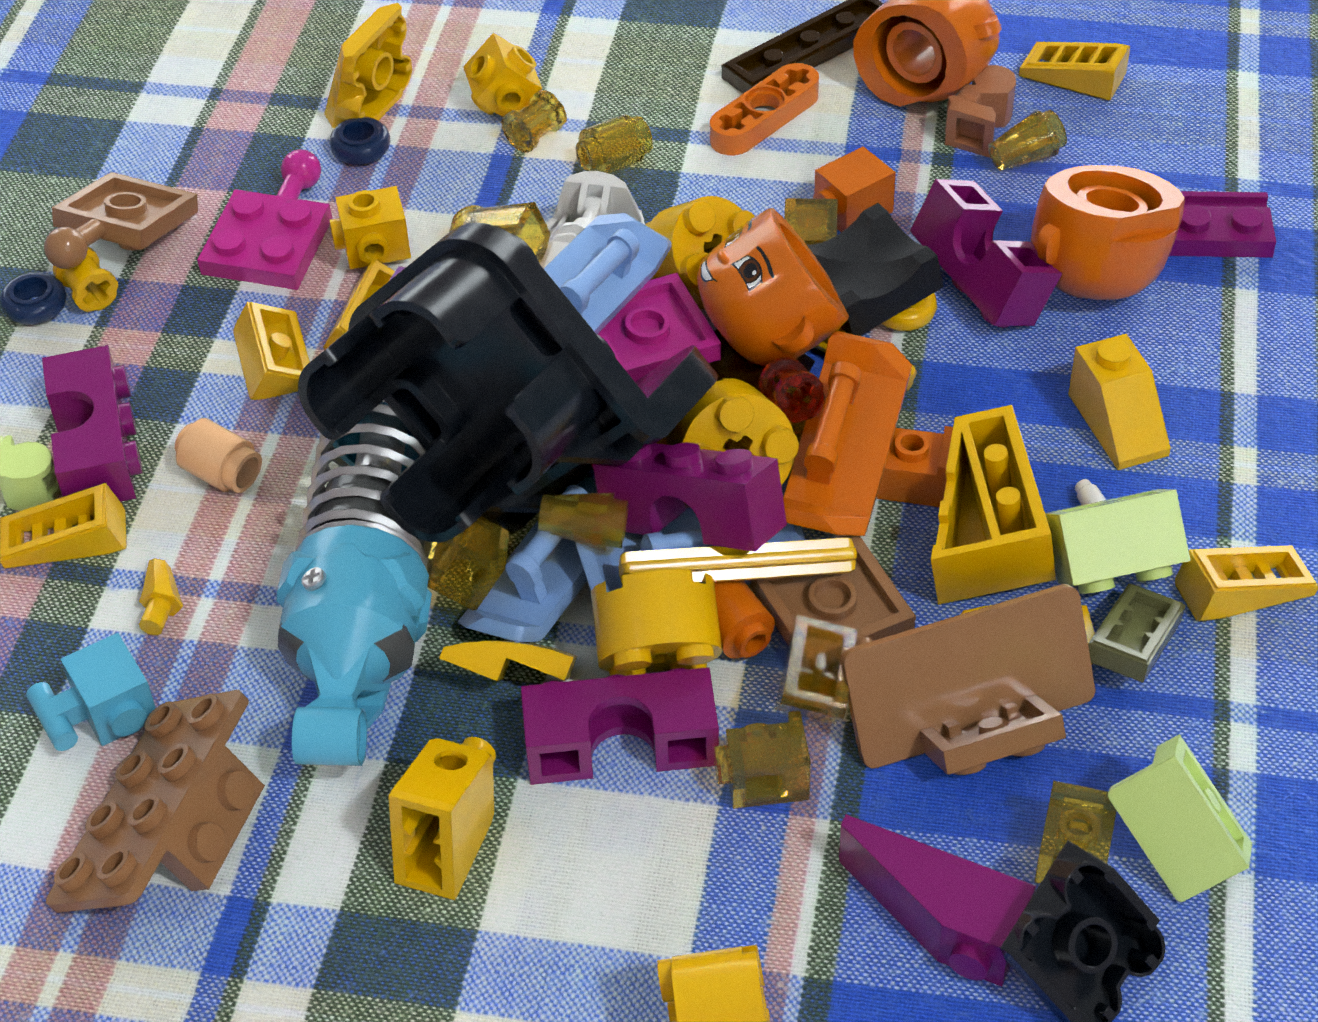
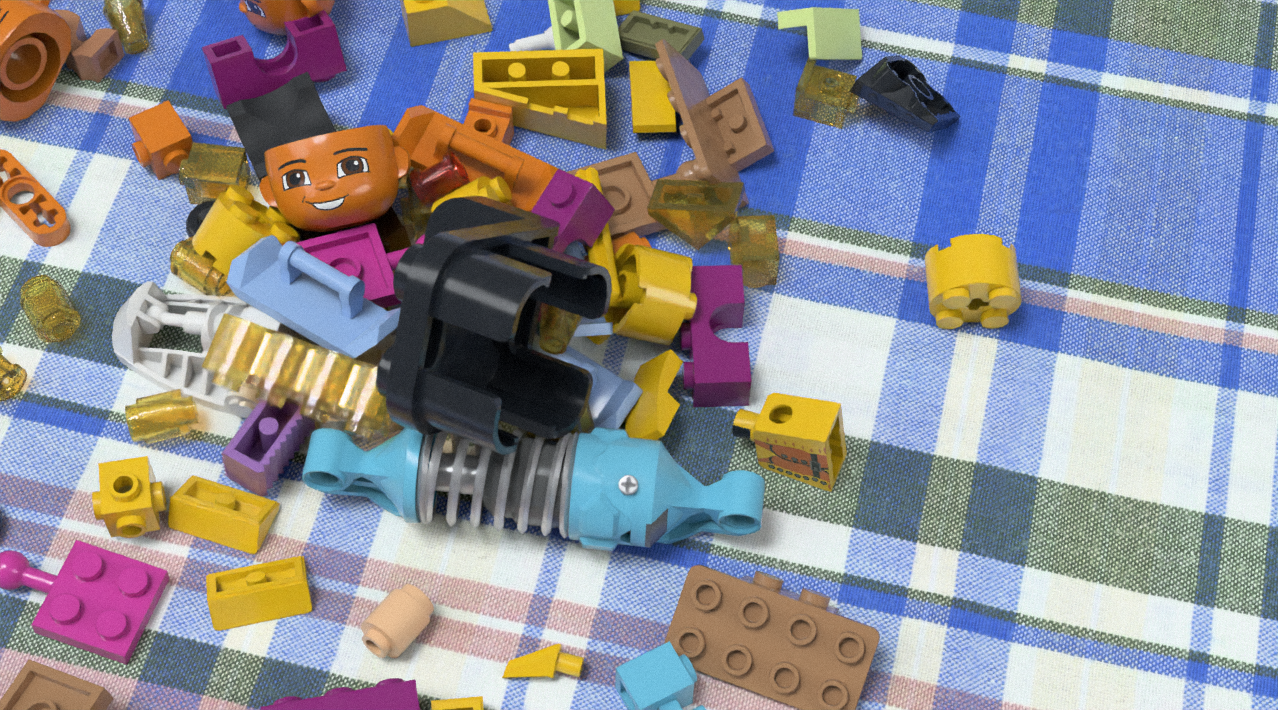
camera: 90 degrees left, 10 degrees up
(942, 900) = (872, 167): magenta slope -> none

